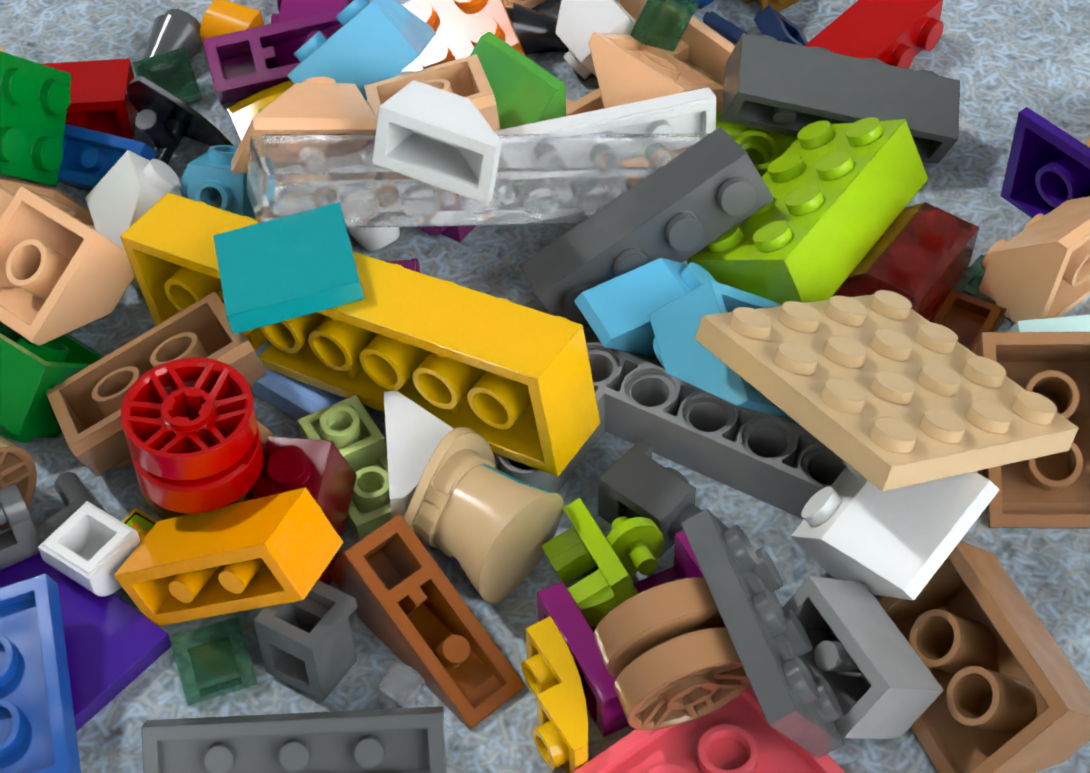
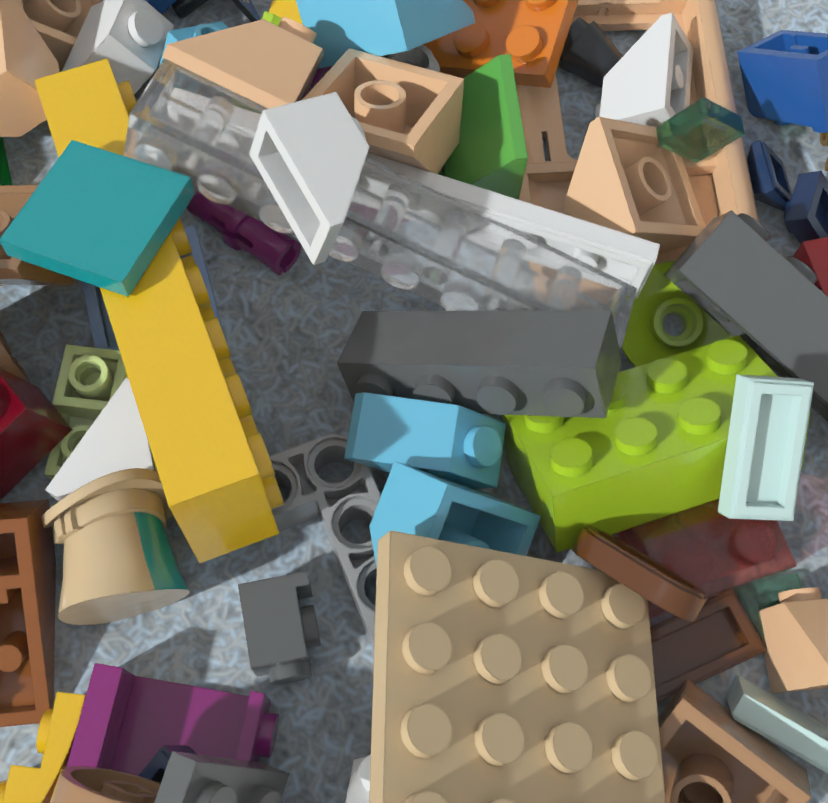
camera: 30 degrees right, 20 degrees up
(627, 549) = (191, 671): lime hips -> none
(896, 153) = (765, 447): none -> light aqua tile
(901, 273) = (640, 573): none -> reddish brown tile

